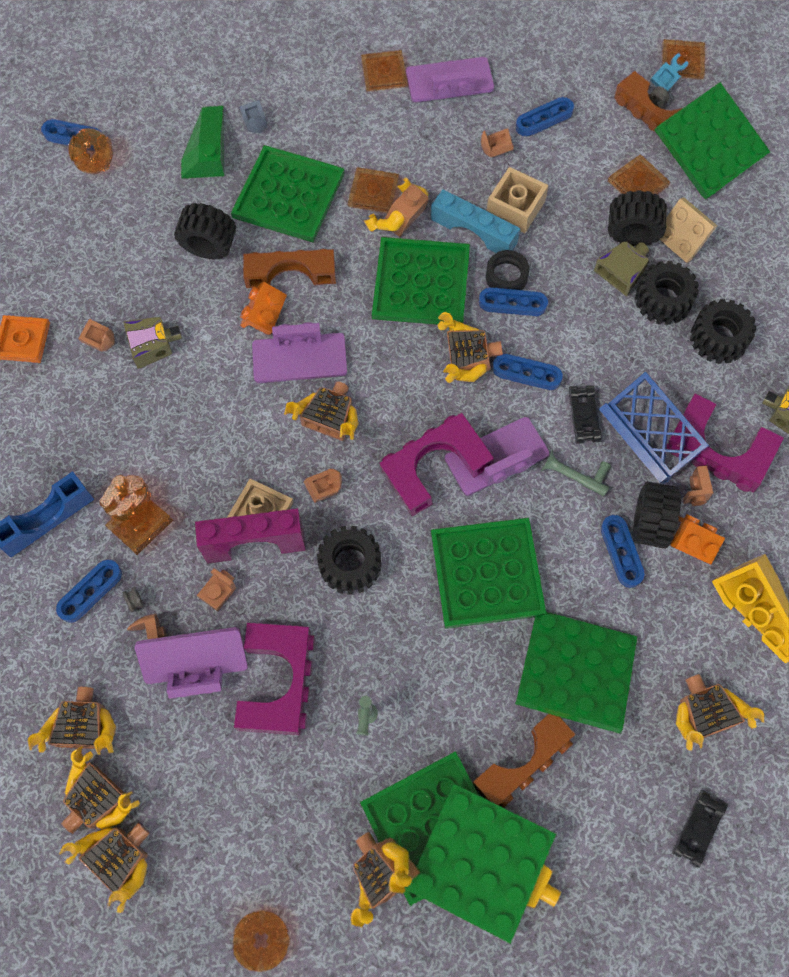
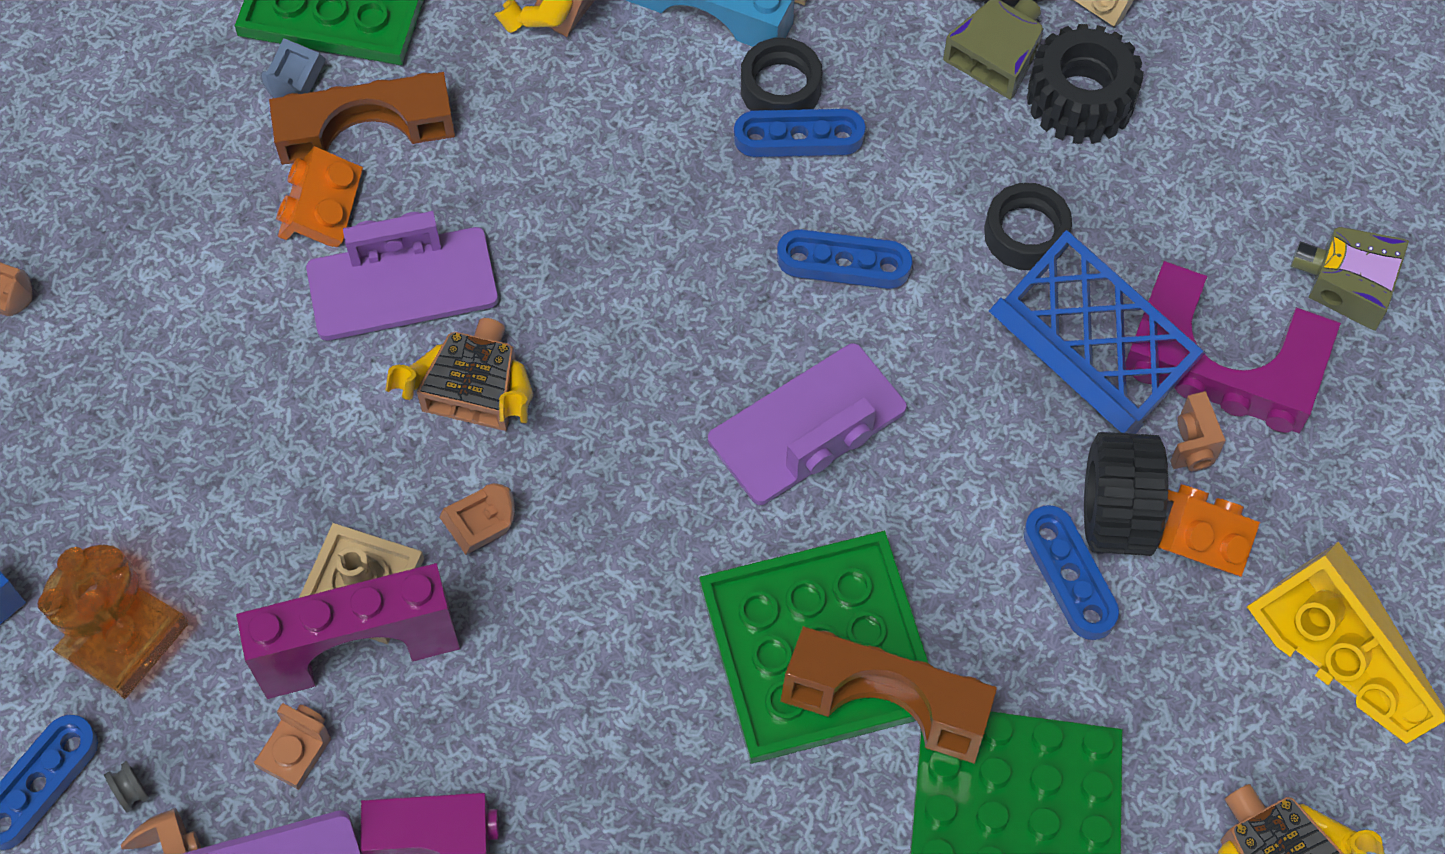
camera: 10 degrees left, 5 degrees down
(150, 340) = (103, 282): olive torso -> none
(205, 231) = (189, 64): black tyre -> none
(257, 239) = (292, 70): none -> sand blue plate
(346, 540) = (539, 617): black tyre -> none
(420, 280) = (619, 115): green plate -> none
(454, 436) = (718, 394): magenta arch -> none
(467, 350) = (725, 231): torso -> none
(493, 588) = (834, 671): none -> dark orange arch
(584, 414) = (963, 325): black plate -> none
(586, 481) = (998, 454): sand green piece -> none
(627, 349) = (1031, 196): none -> black tyre
(715, 345) = (1195, 170): black tyre -> none

